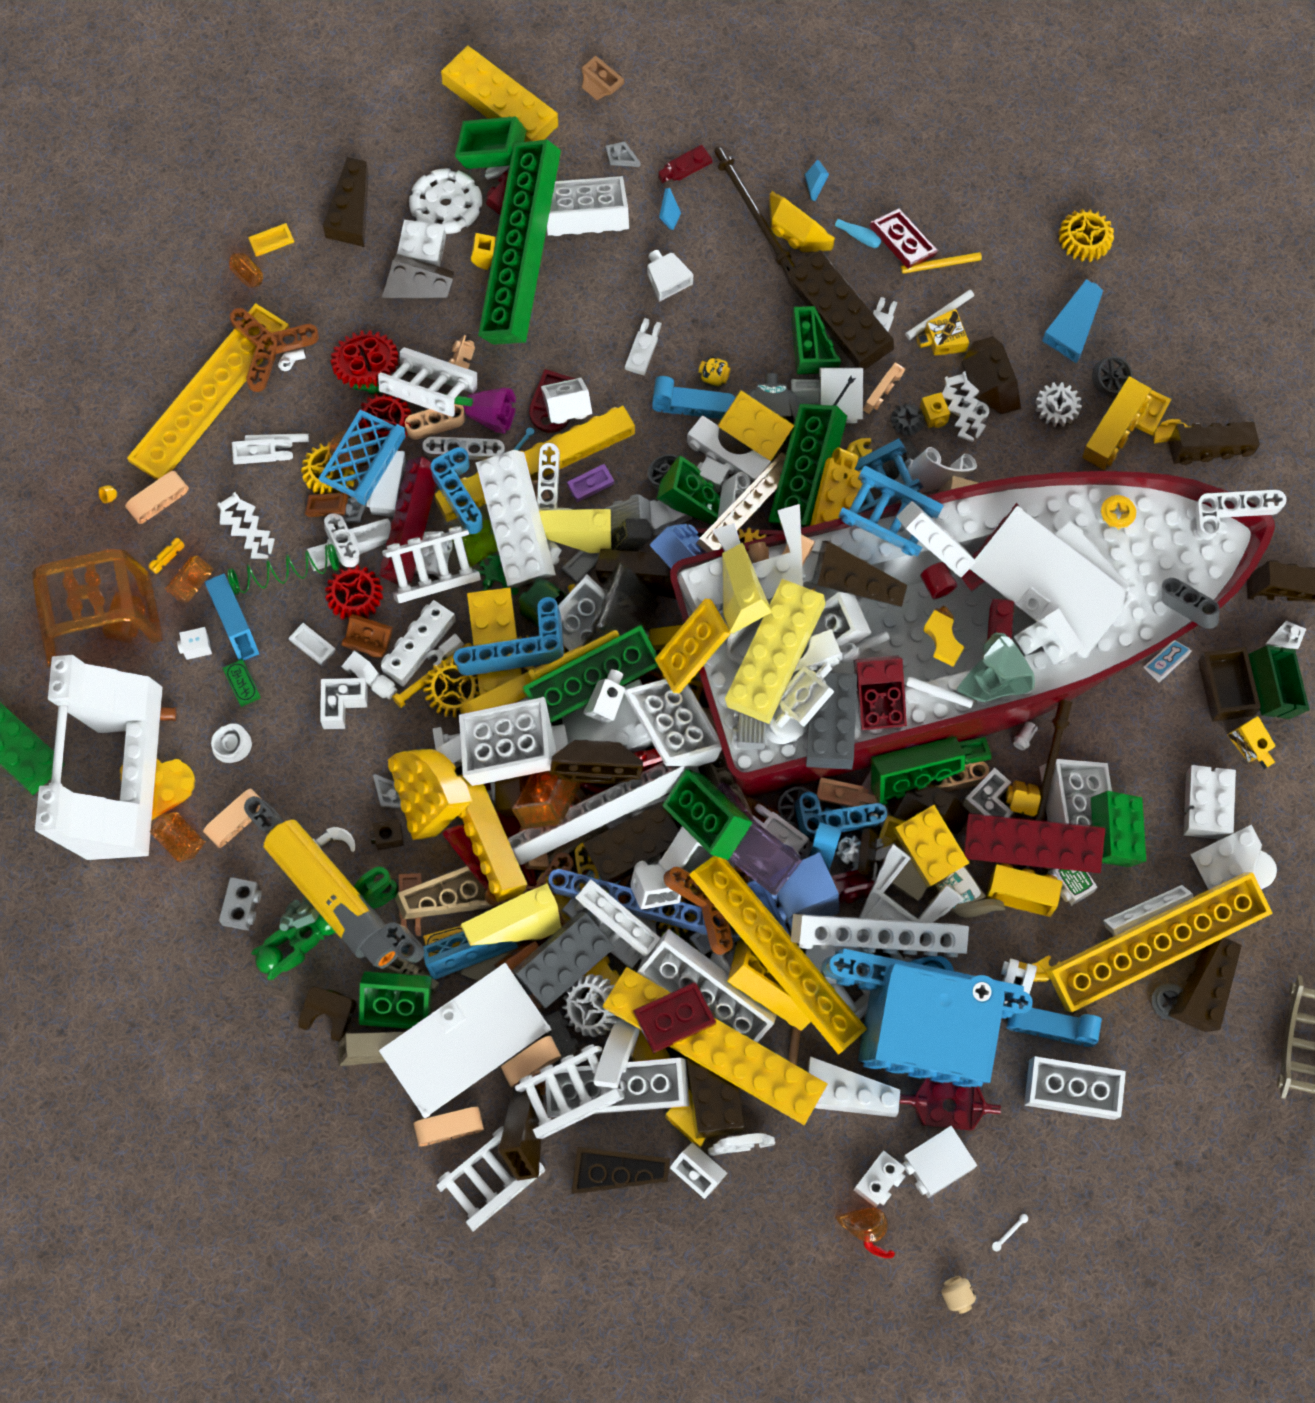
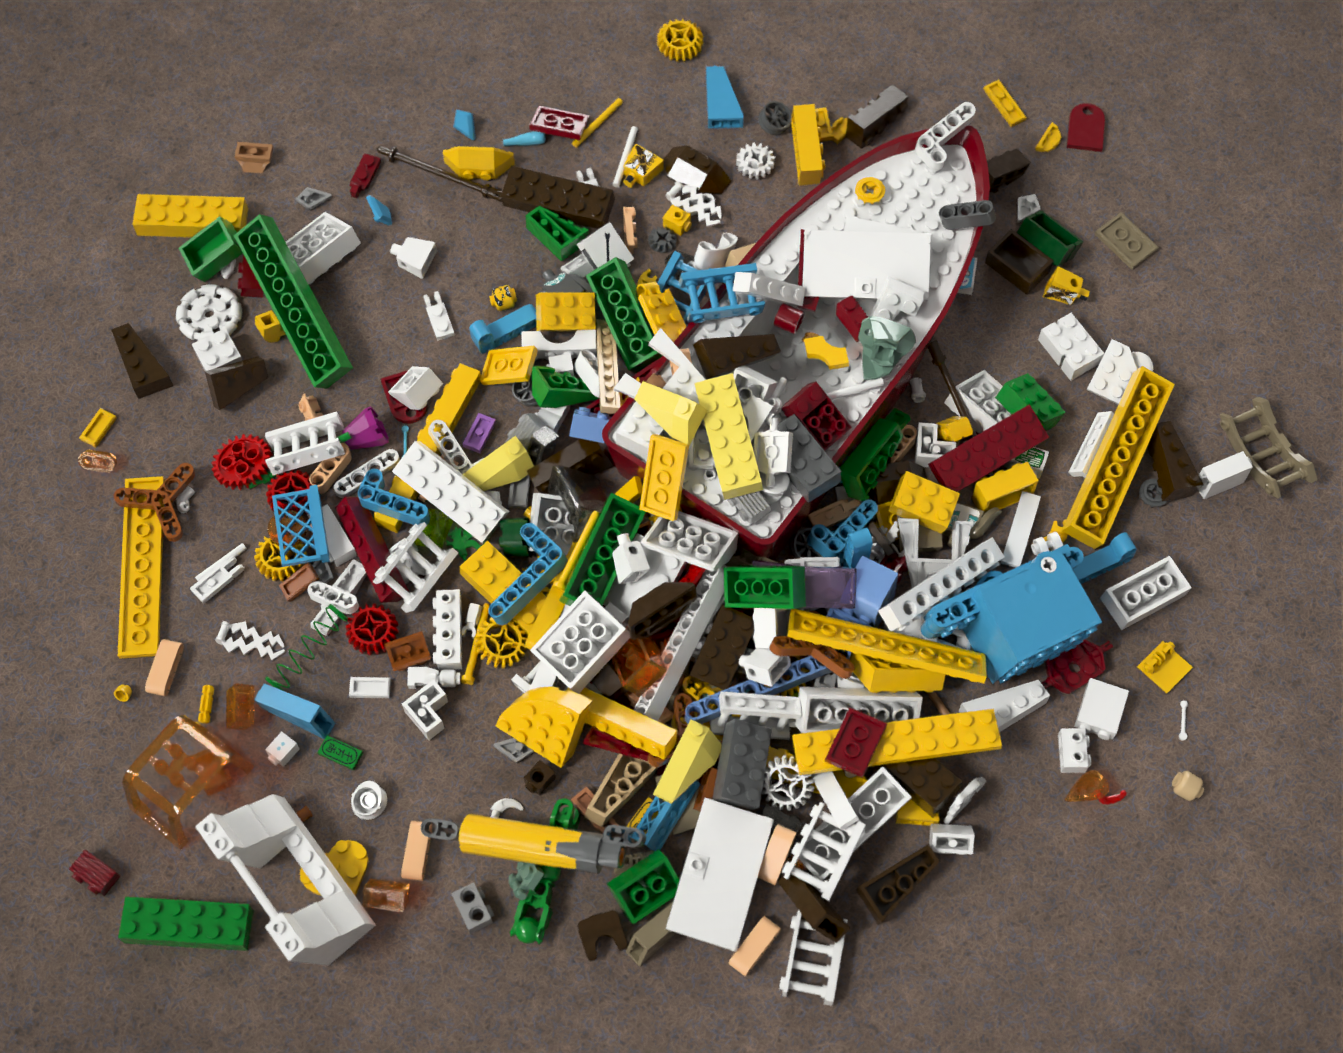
camera: 35 degrees left, 5 degrees down
(665, 438) = (508, 365): none -> yellow plate
(1008, 939) = (1020, 529): none -> white slope
(1035, 1170) = (1164, 666): none -> yellow hinge
(1249, 1035) = (1224, 474): none -> white brick

